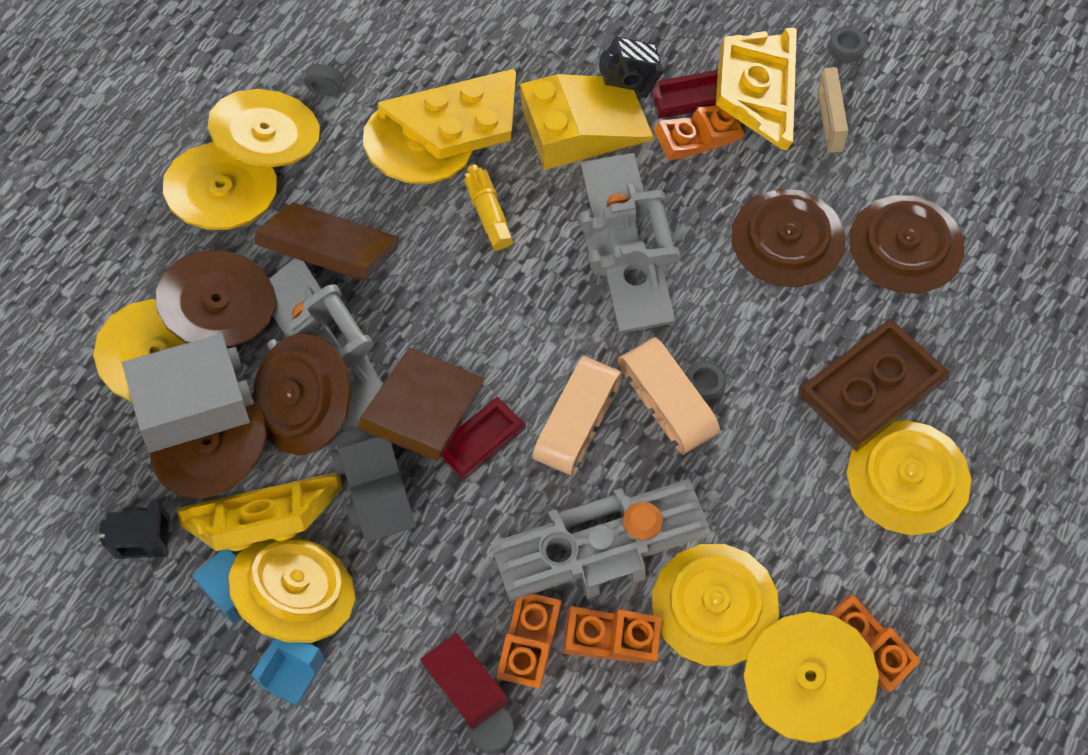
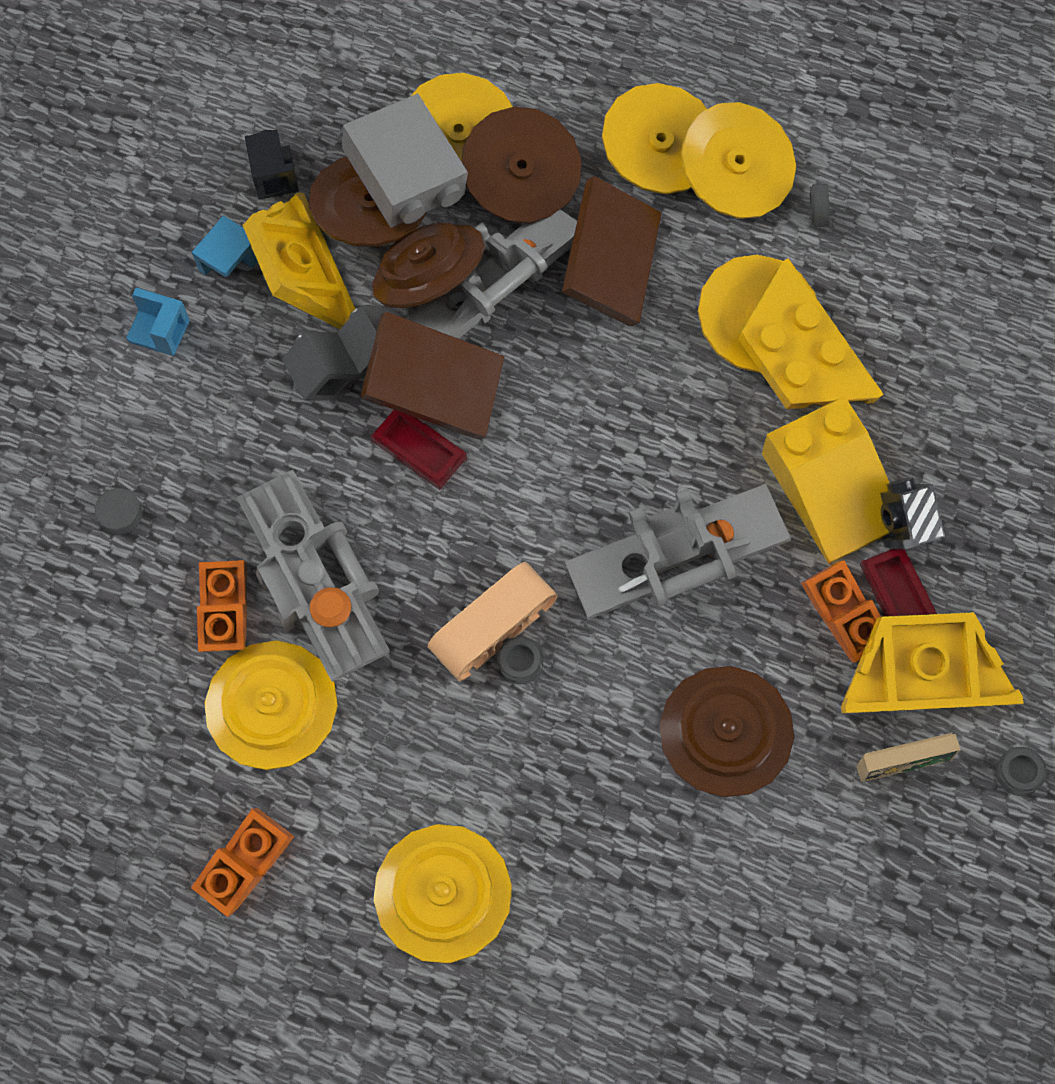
camera: 80 degrees right, 5 degrees up
(291, 589) = (223, 306): yellow piece -> none
(464, 681) = (158, 476): dark red tile -> none
(487, 205) = (694, 402): yellow piece -> none
(529, 640) = (206, 531): orange slope -> none
(575, 415) = (455, 531): light nougat beam -> none
(811, 677) = (192, 801): yellow piece -> none
(873, 384) = (547, 842): reddish brown tile -> none
(906, 244) = (746, 869): reddish brown piece -> none

